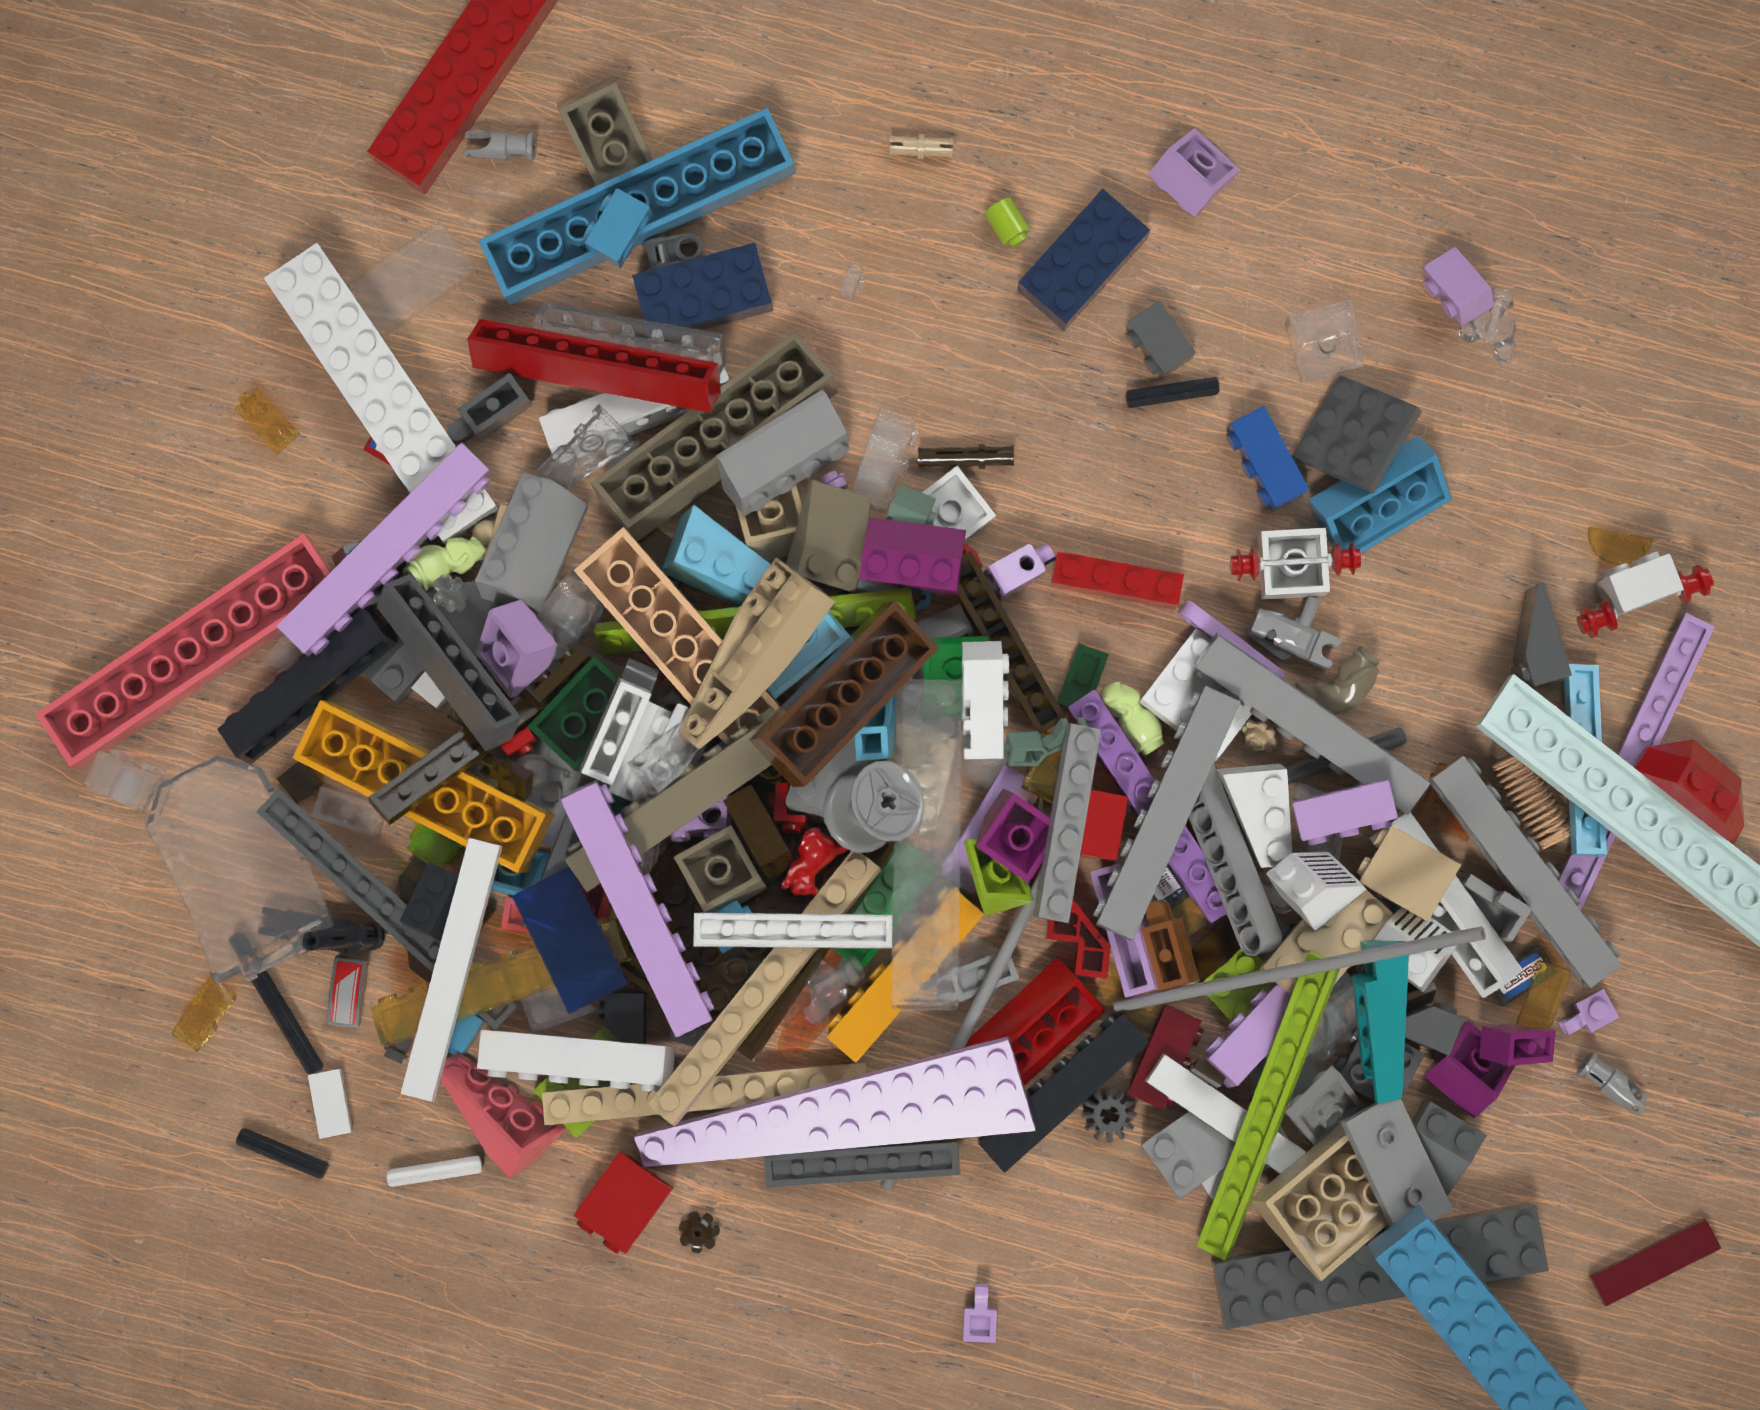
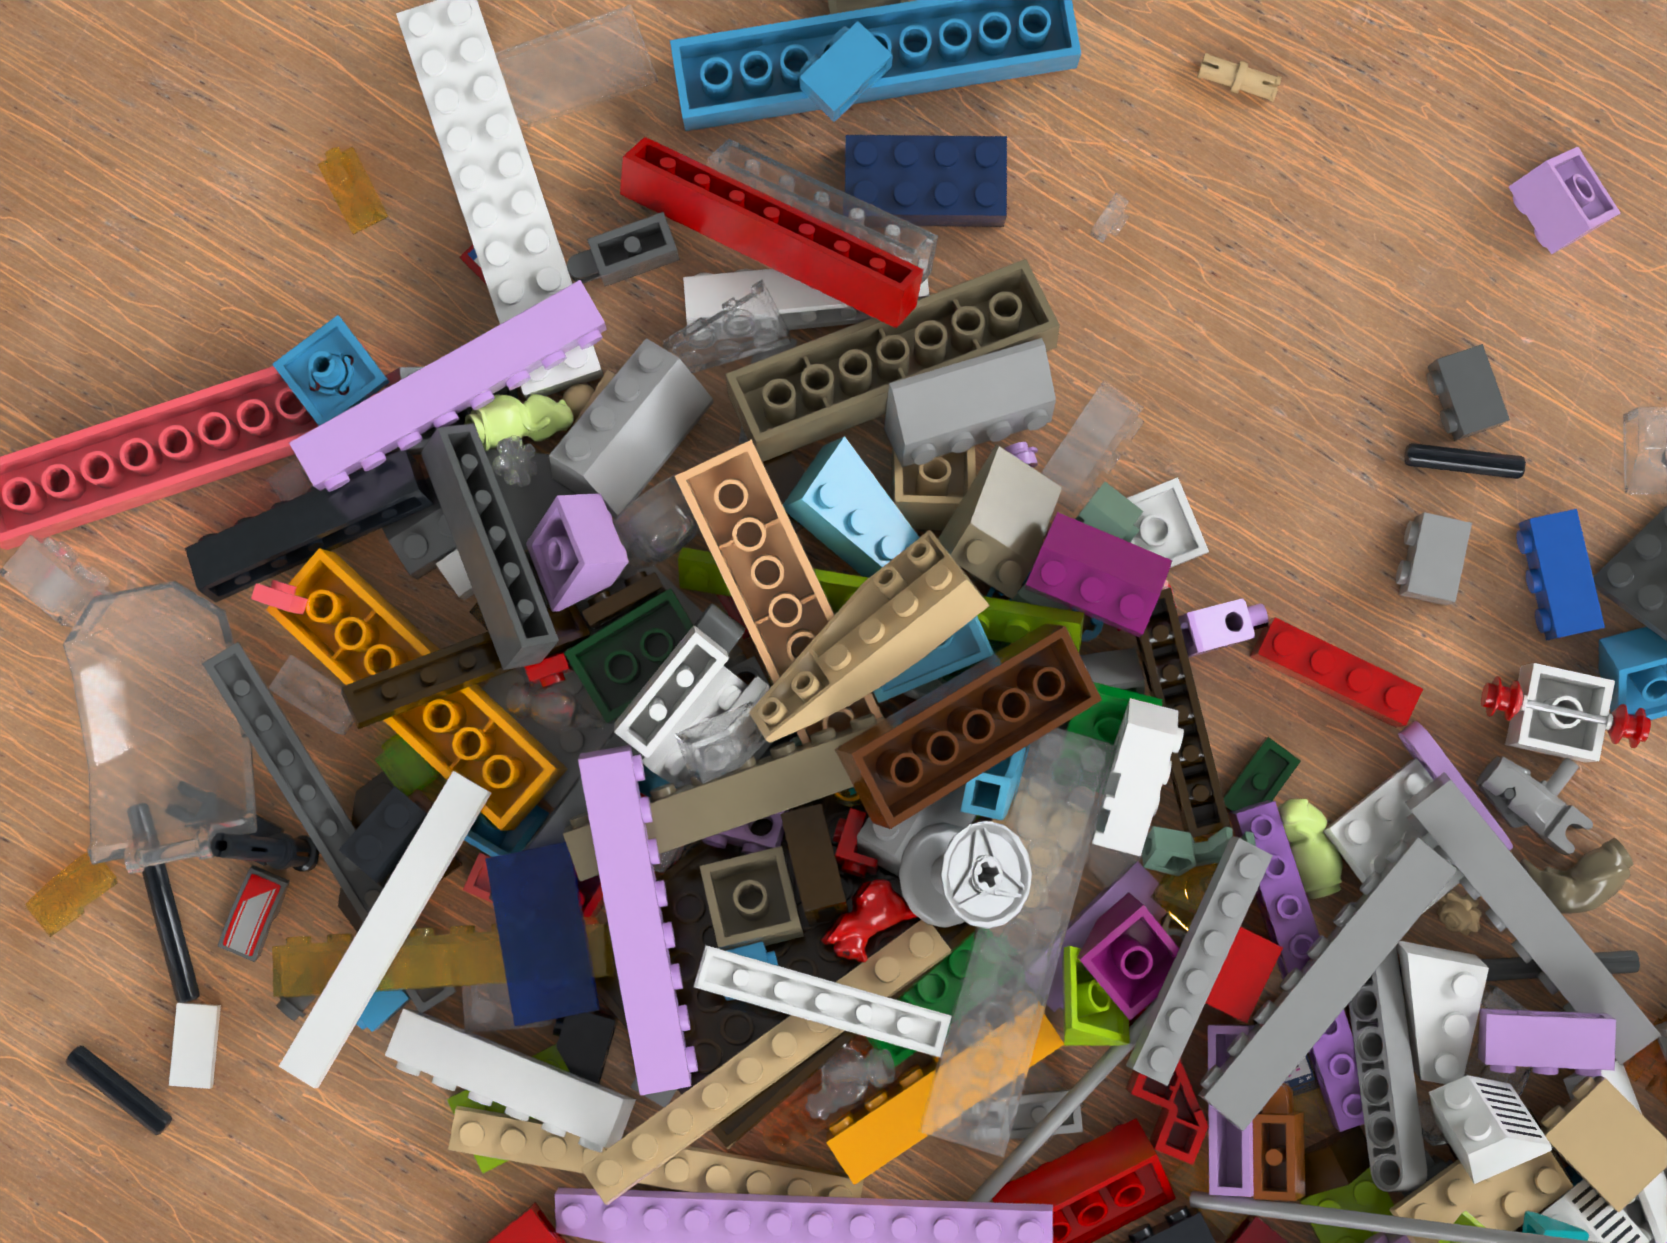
camera: 10 degrees right, 0 degrees up
(282, 557) = (321, 360): none -> dark azure plate
(299, 781) = (268, 640): dark brown tile -> none
(301, 744) = (280, 596): none -> coral plate
(434, 1171) = (298, 1164): white axle -> none
(500, 1118) = (395, 1119): coral wedge -> none
(511, 777) = (526, 708): dark brown plate -> none
(671, 249) = (901, 116): dark grey piece -> none
(966, 456) = (1191, 469): dark brown pin -> none
(1008, 223) = (1320, 198): lime brick -> none
(1083, 259) = (1401, 268): dark blue brick -> none
(1168, 473) = (1433, 558): none -> light grey brick

